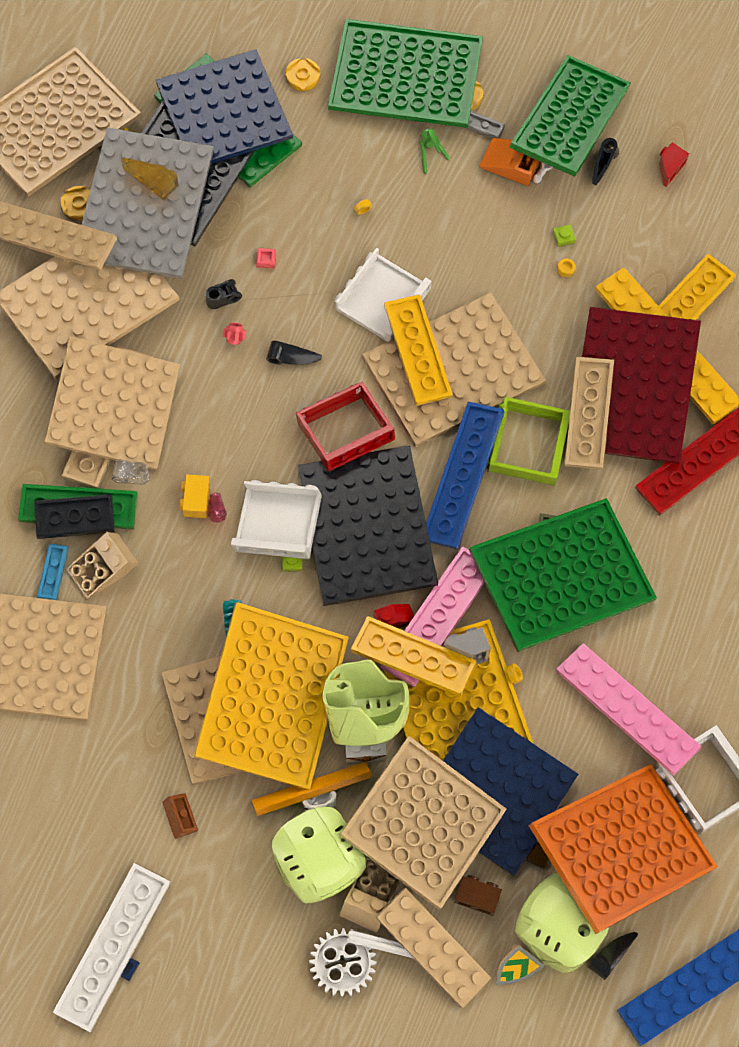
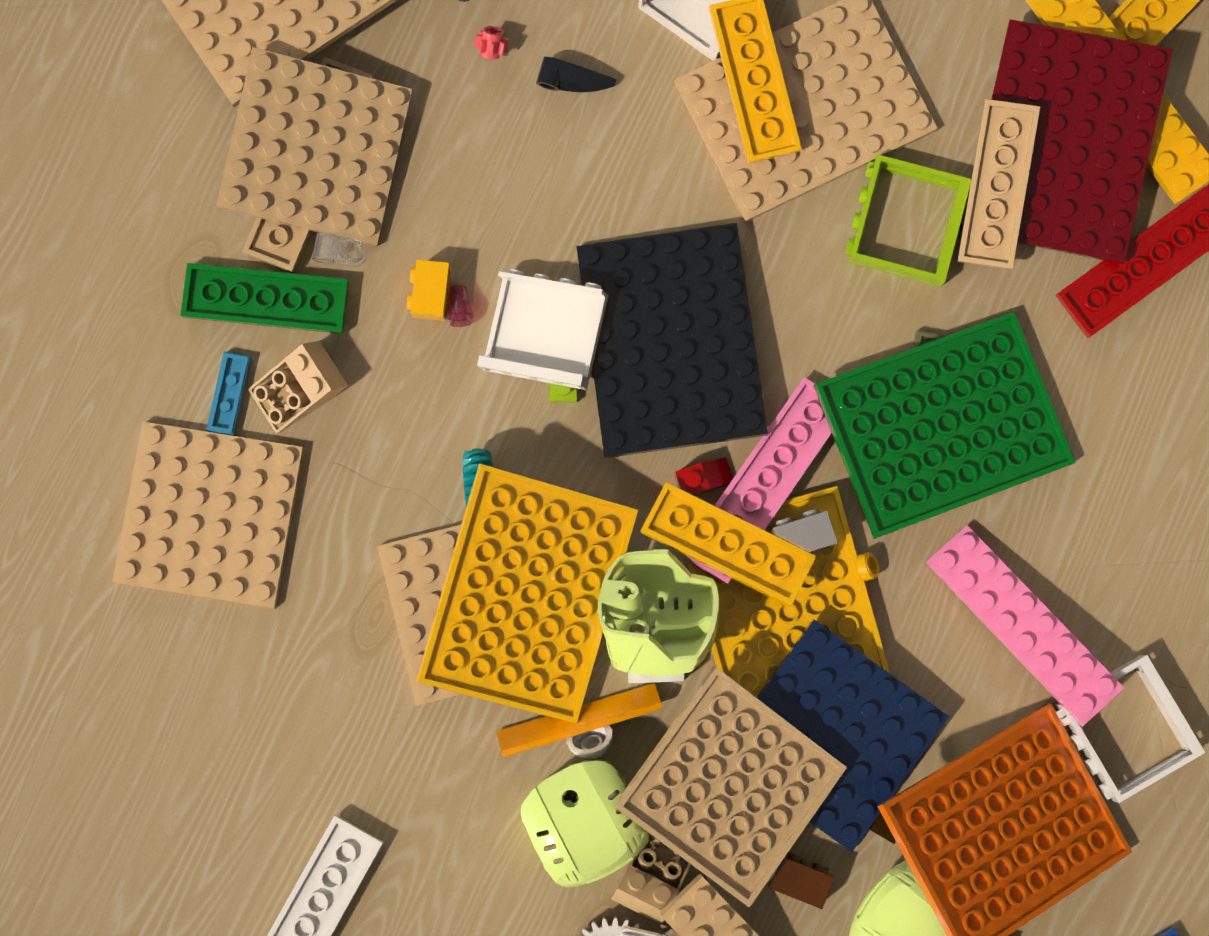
camera: 10 degrees right, 15 degrees up
(74, 516) = (258, 315): black tile -> none
(180, 815) = (399, 748): dark orange slope -> none
(358, 447) = (664, 226): red window -> none
(463, 474) = (811, 269): blue plate -> none

